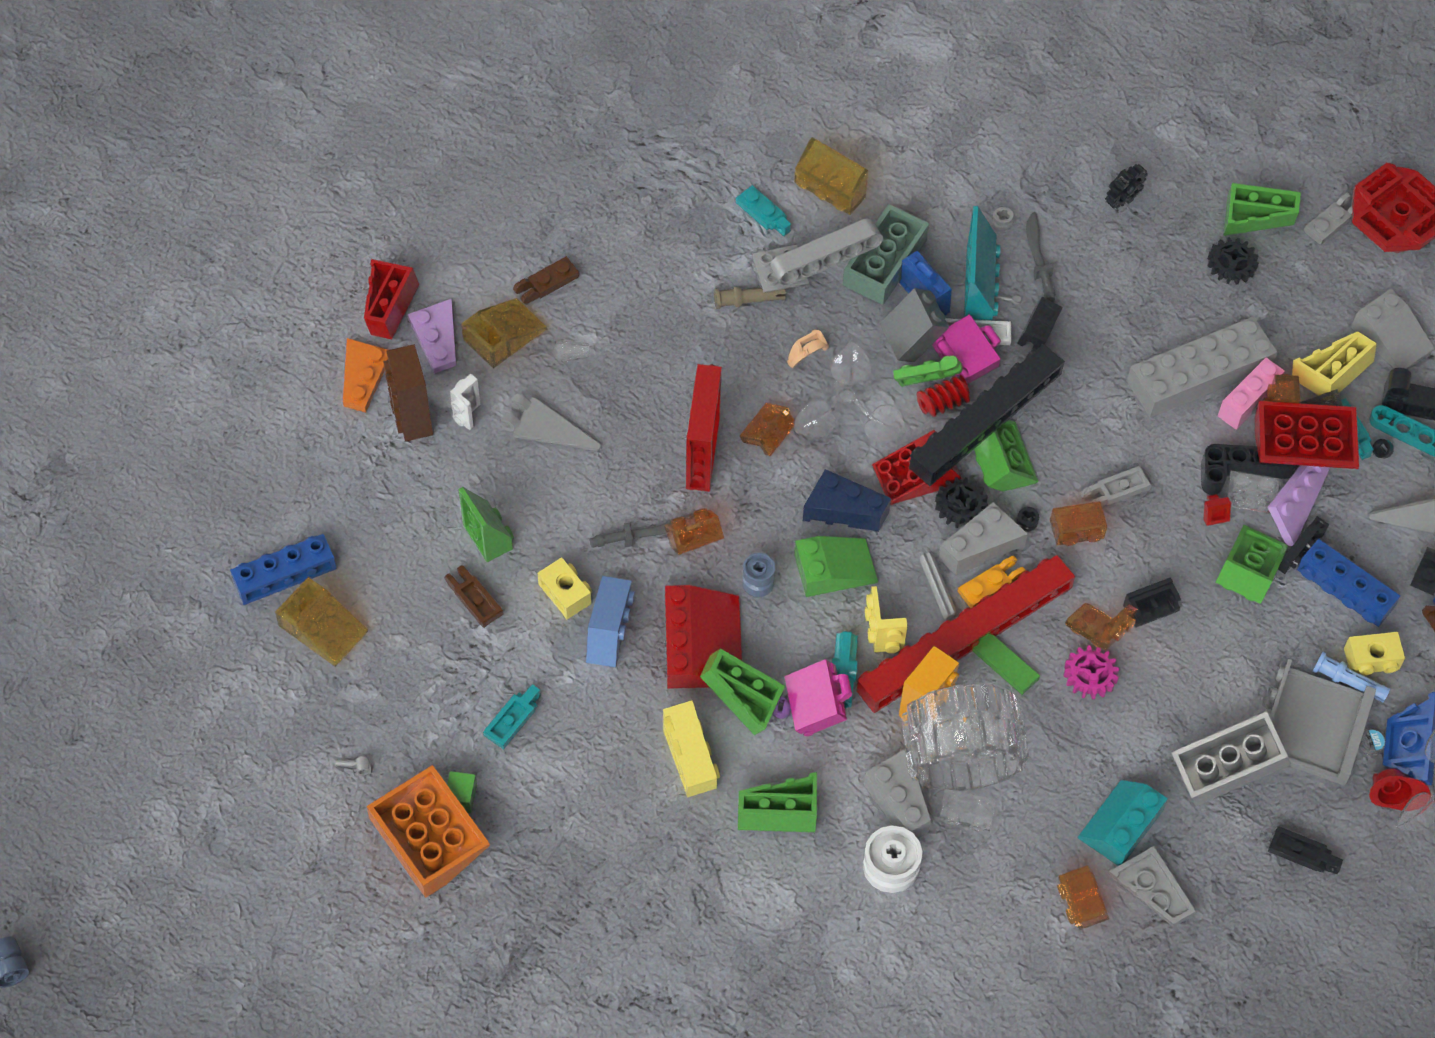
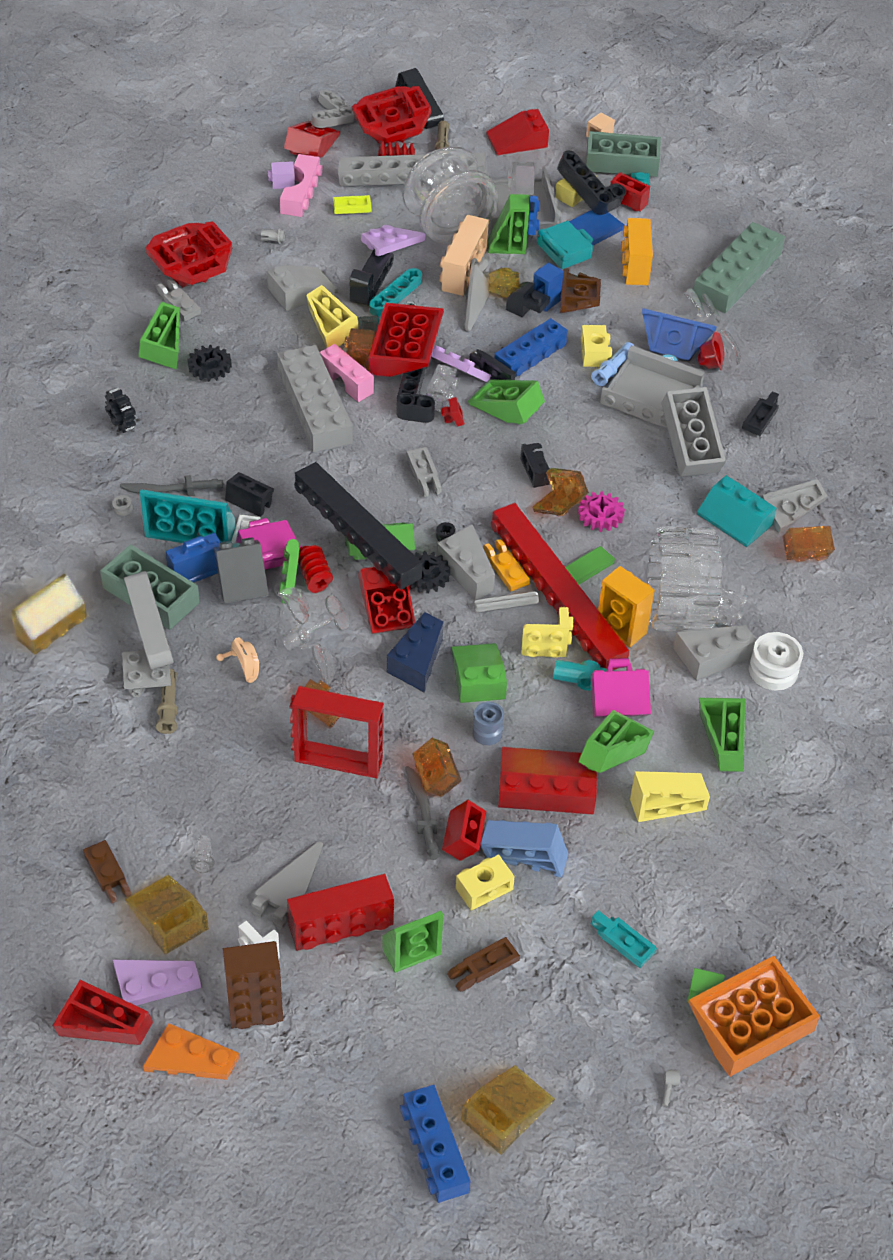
camera: 85 degrees left, 10 degrees down
(509, 464) = (340, 912): none -> red brick
(619, 562) = (464, 830): none -> red brick
(763, 210) = (67, 679): teal hinge -> none
(1078, 523) = (460, 496): clear orange brick -> none

